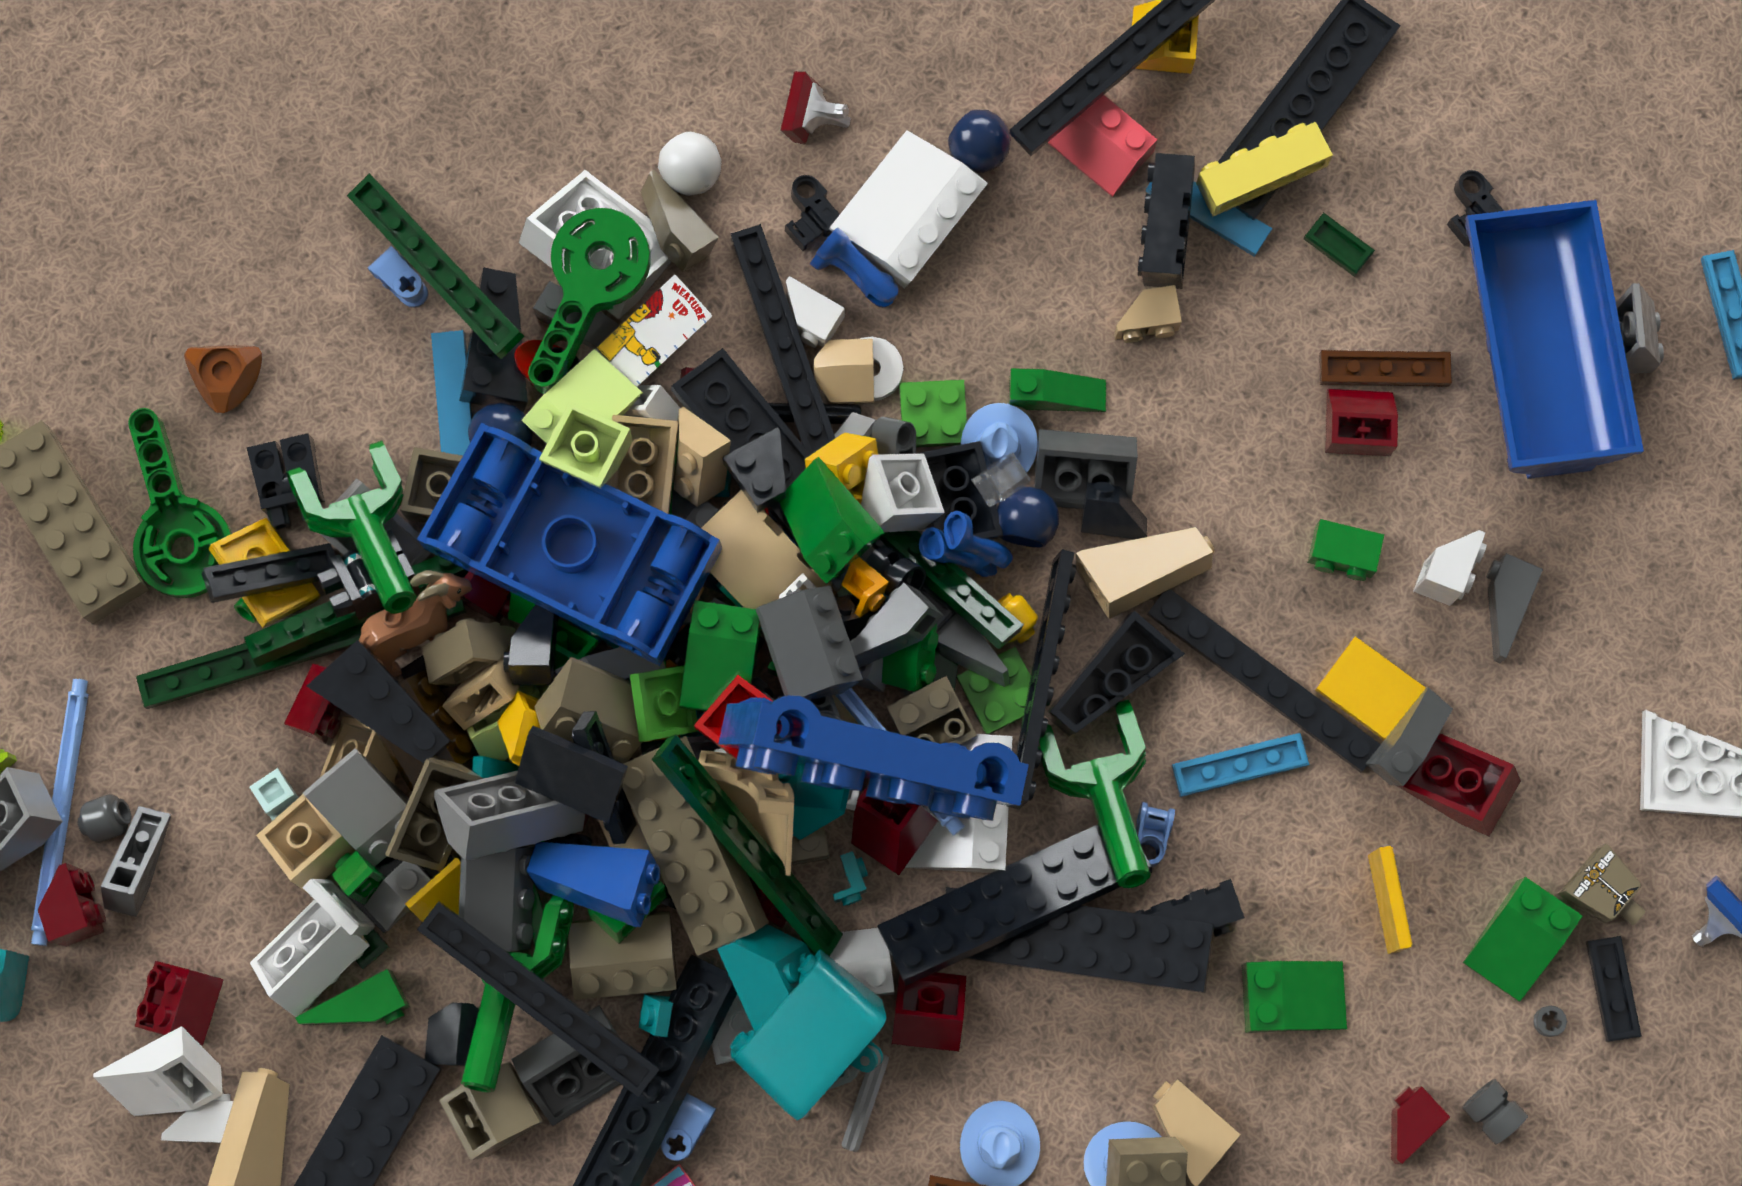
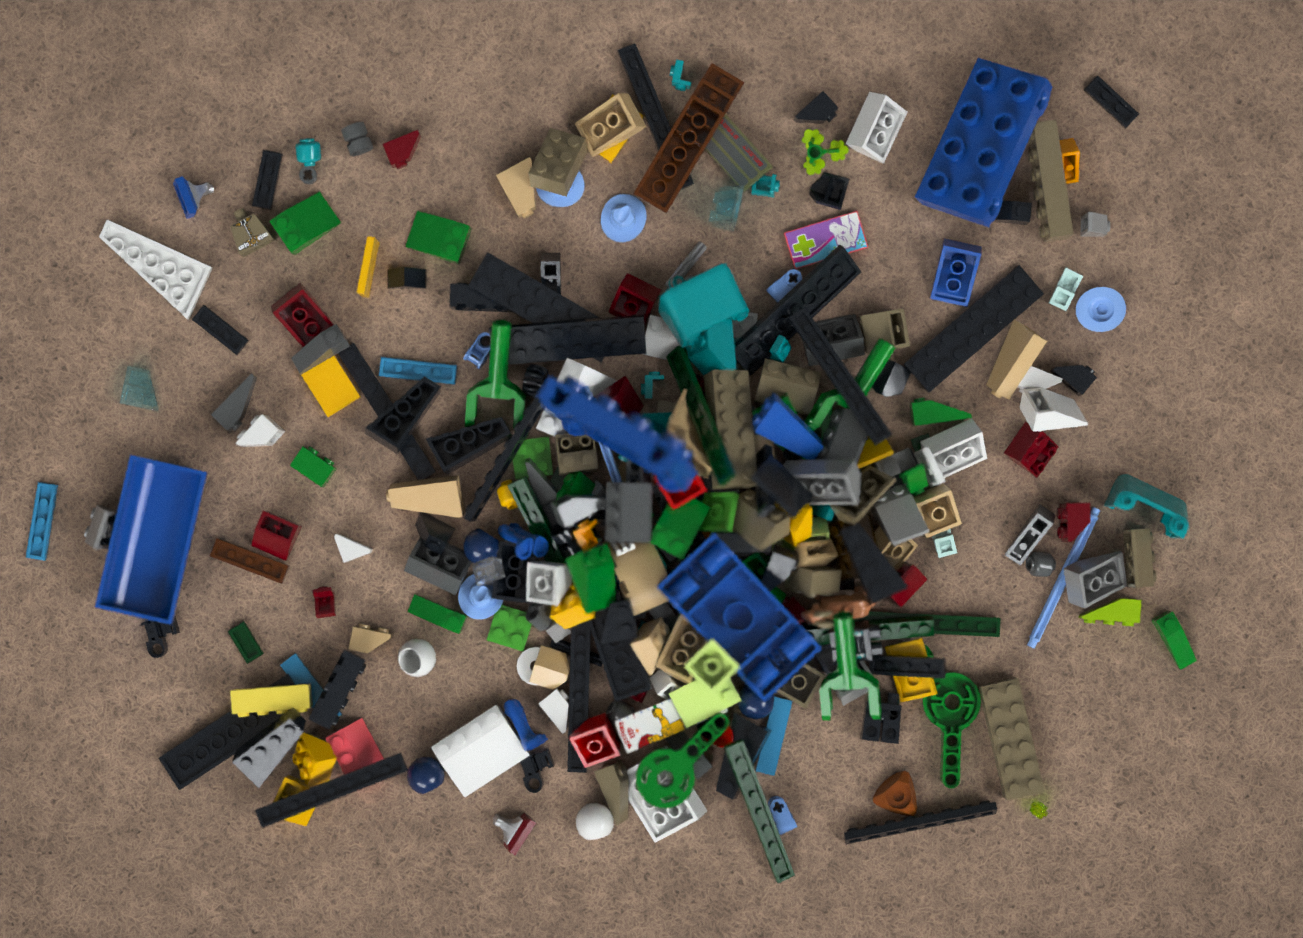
camera: 160 degrees left, 10 degrees up
(140, 1153) = (1075, 377): none -> black slope
(161, 351) = (928, 820): none -> black plate
(709, 340) = (619, 710): none -> dark grey head
(732, 283) = (596, 741): none -> red slope
(1044, 816) = (534, 379): none -> black gear
(1062, 310) = (417, 657): none -> white helmet
(1085, 1006) = (551, 271): none -> black slope
(1161, 102) = (314, 759): none -> yellow slope
(1234, 442) = (350, 549): none -> white slope
(1235, 670) = (401, 419): none -> black wedge
(1238, 94) = (266, 749): none -> wedge
(1241, 346) = (324, 602): none -> dark red bracket
(1318, 908) = (406, 278): none -> black slope
(1566, 1060) = (308, 151): none -> teal head
(1584, 714) = (220, 329): none -> black tile
(1673, 570) = (138, 389): none -> clear light blue slope

